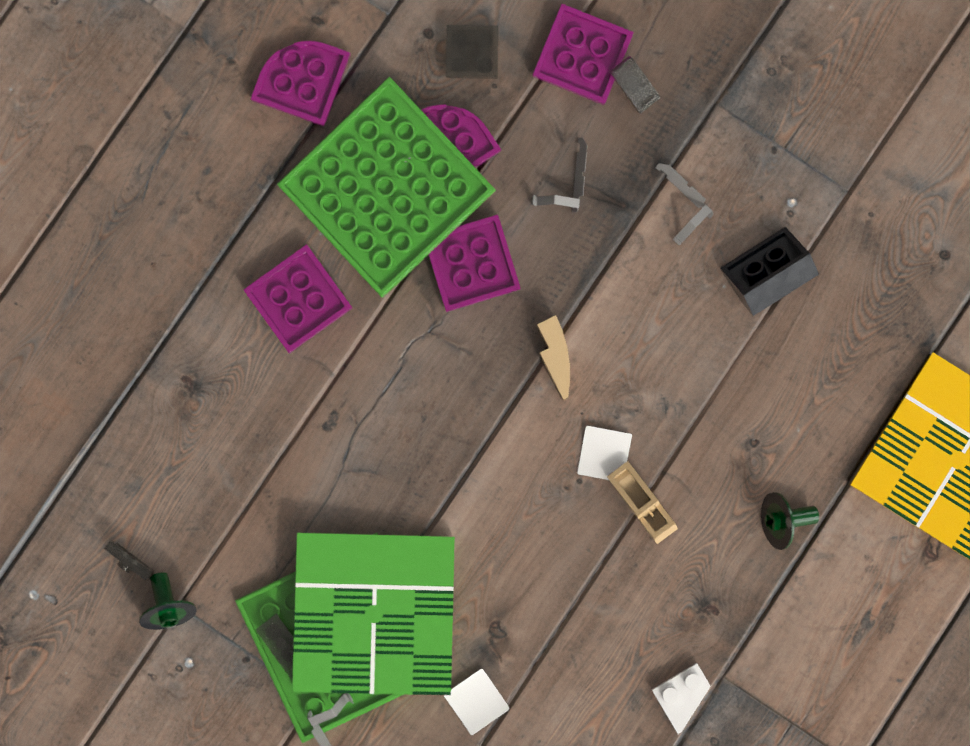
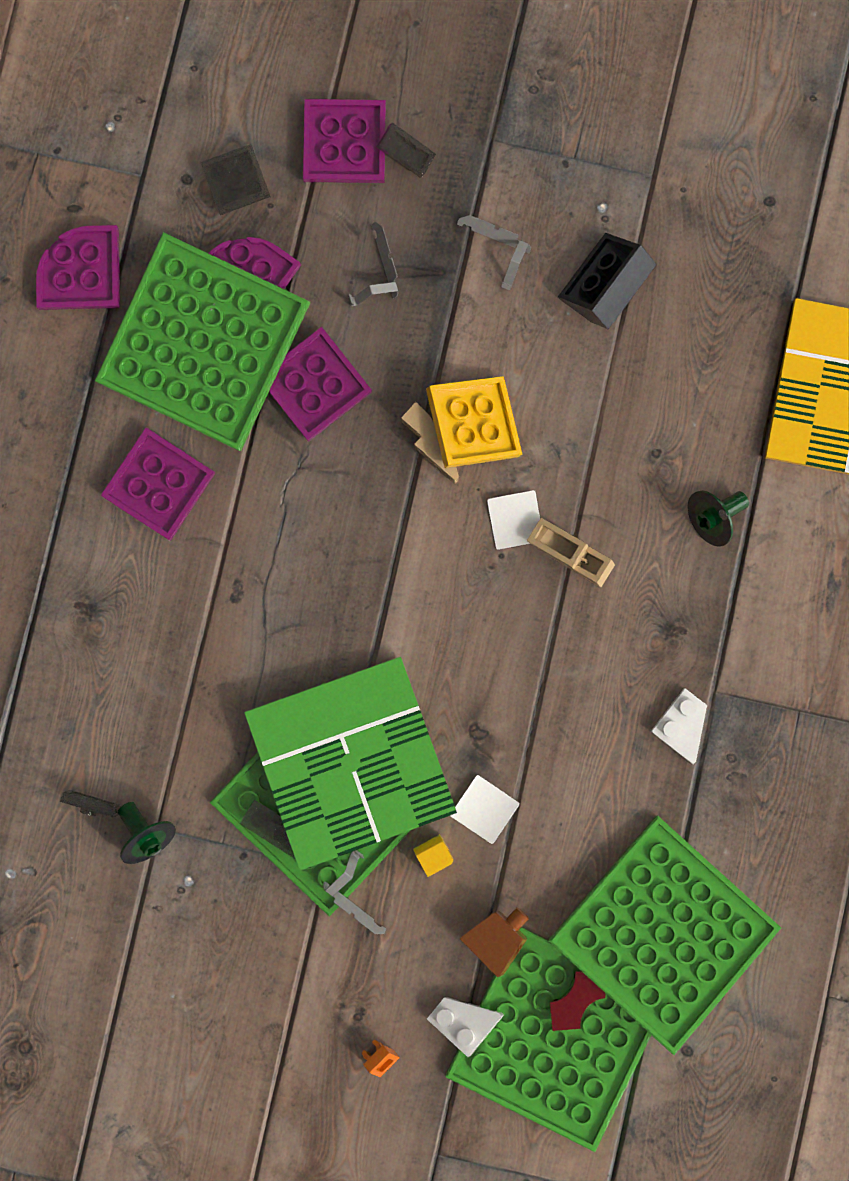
camera: 20 degrees left, 0 degrees up
(415, 724) = (433, 855): none -> yellow piece
(600, 353) = (473, 421): none -> yellow plate

